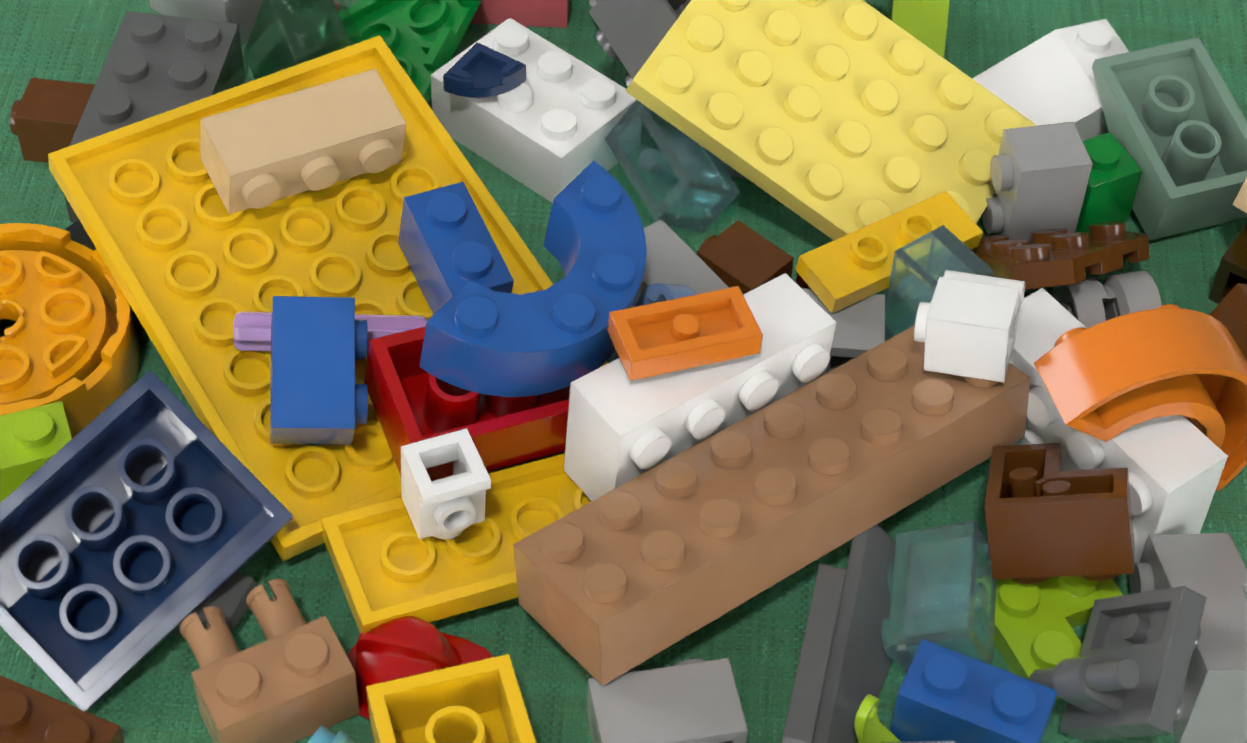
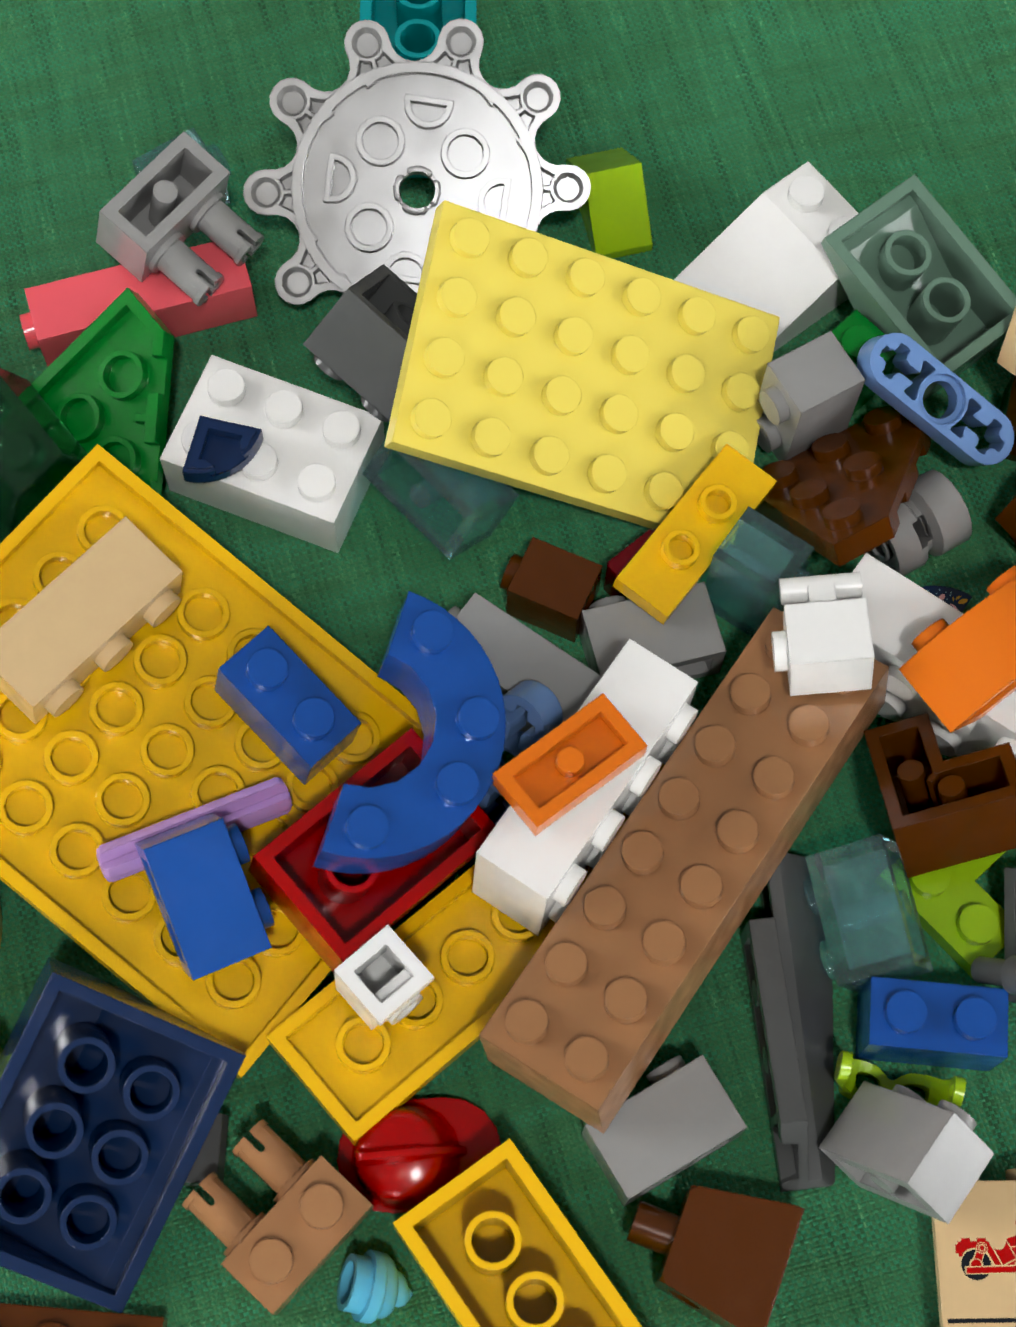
camera: 20 degrees left, 20 degrees up
(1185, 210) = (963, 400): none -> medium blue beam

